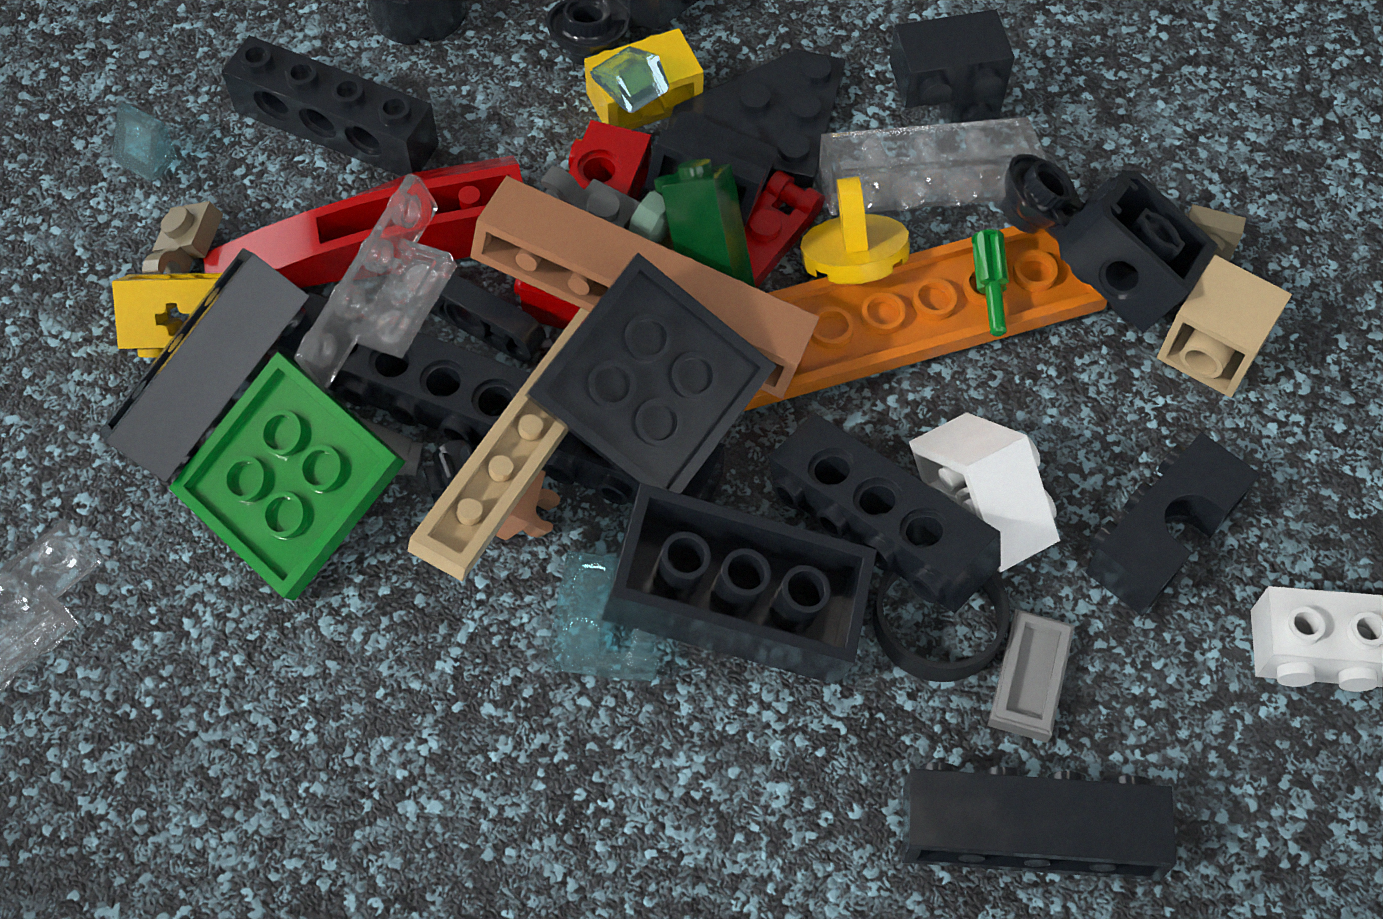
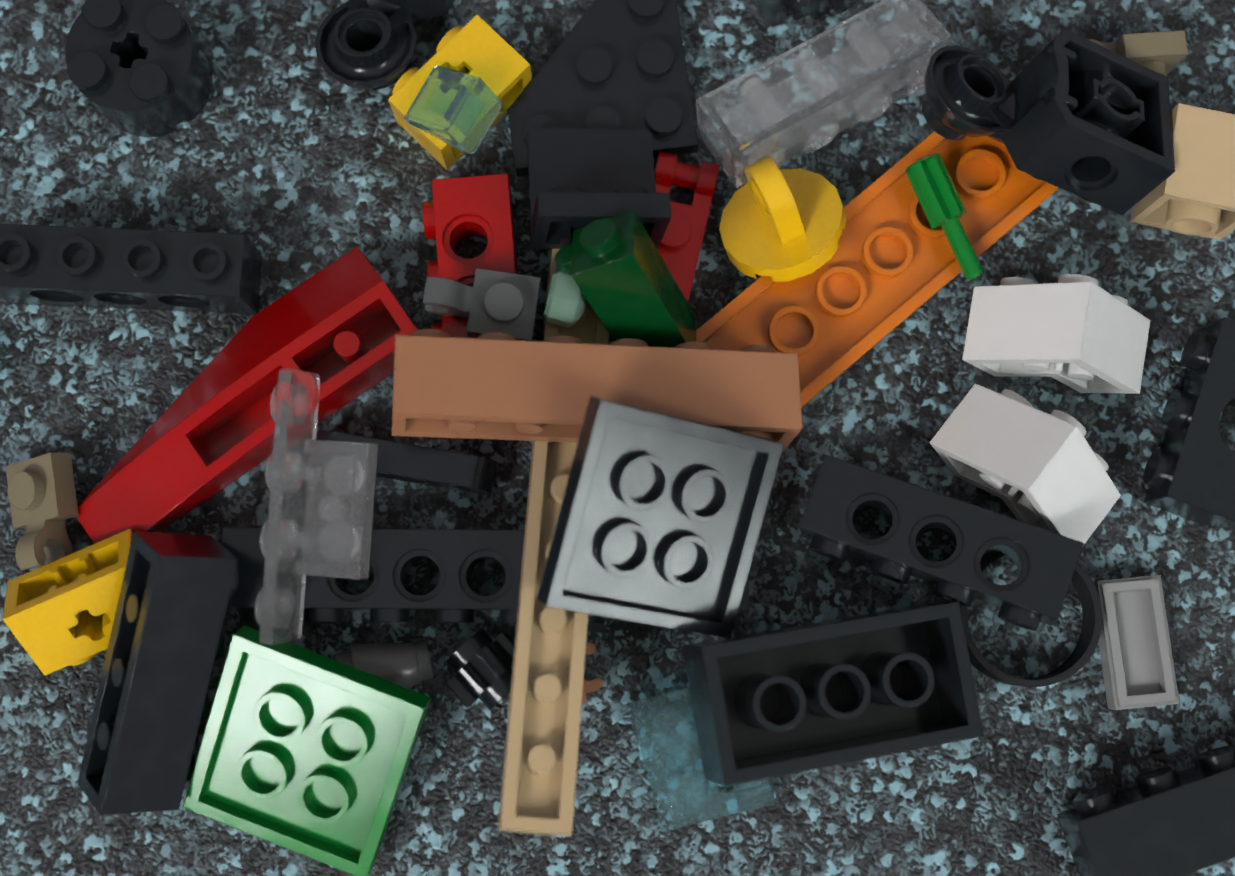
camera: 25 degrees left, 20 degrees up
(1057, 393) = (1058, 332): none -> white brick

